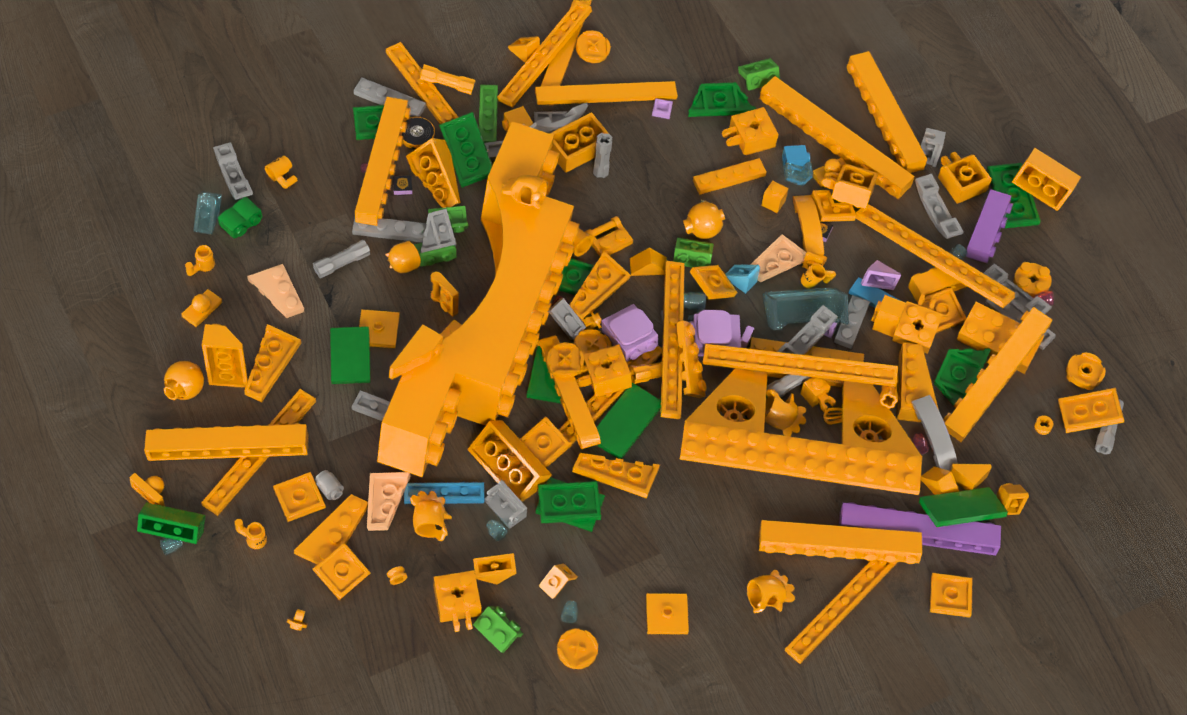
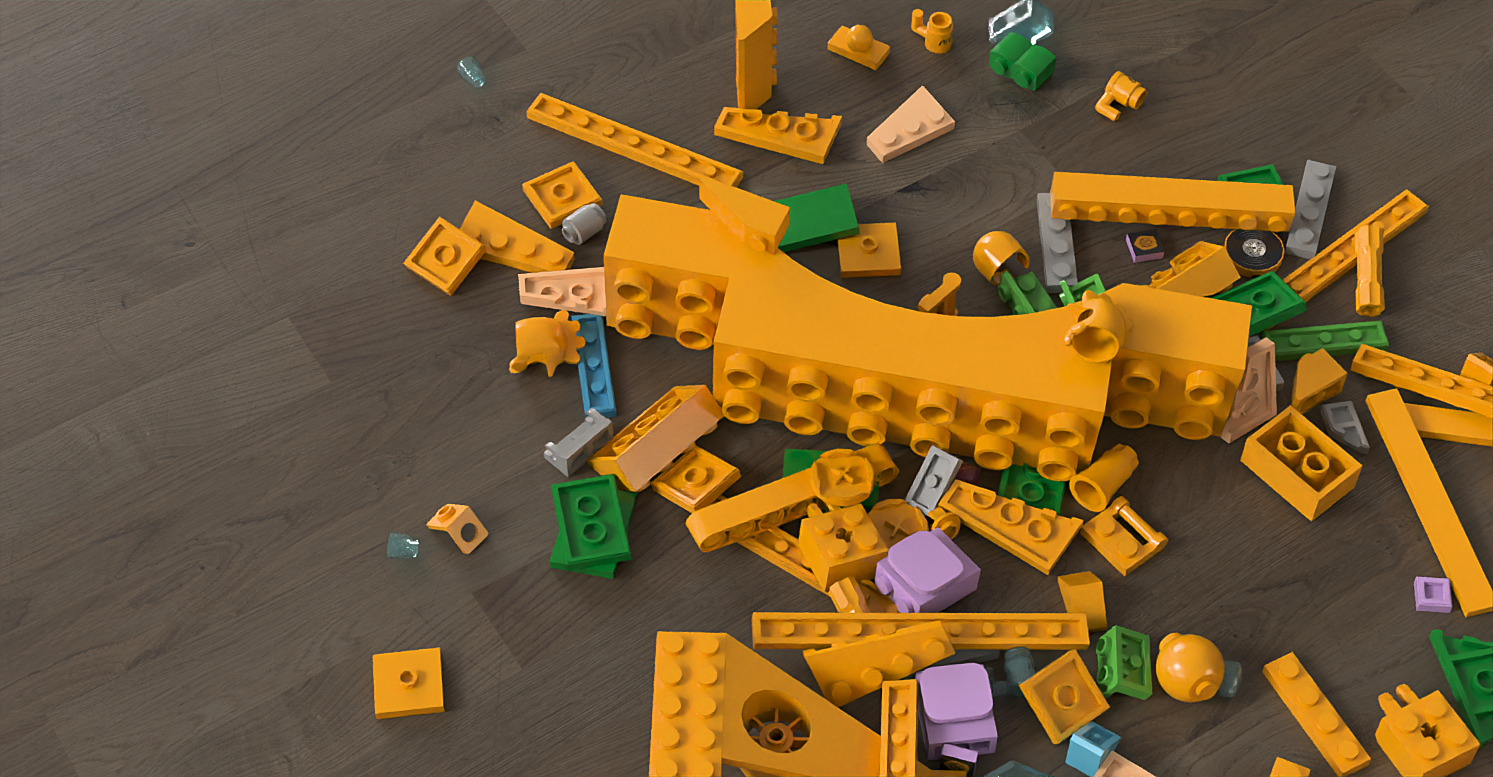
camera: 90 degrees right, 5 degrees down
(148, 489) = (550, 34): light orange tile -> none
(171, 523) = (499, 61): green brick -> none
(183, 380) = (716, 35): light orange brick -> none
(226, 442) = (633, 100): light orange brick -> none
(232, 171) = (1101, 46): light grey slope -> none
(254, 534) = (493, 150): light orange piece -> none
(297, 623) = (362, 219): light orange plate -> none
(353, 253) = (996, 200): light grey axle -> none
(397, 575) = (444, 321): light orange bush -> none
(438, 231) = (1052, 284): light grey wing -> none
(452, 608) = (406, 395): light orange hinge -> none
(495, 568) = (458, 427): light orange slope -> none
(496, 530) = (534, 435): clear light blue hose -> none
(498, 628) = (368, 456): bright green bracket -> none
(547, 126) = (1303, 395): light grey slope -> none
(577, 648) = (340, 565): light orange tile -> none
(602, 157) = (1275, 475): light grey axle -> none
(623, 475) = (657, 586): light orange wing -> none
(627, 420) = (747, 584): green tile -> none

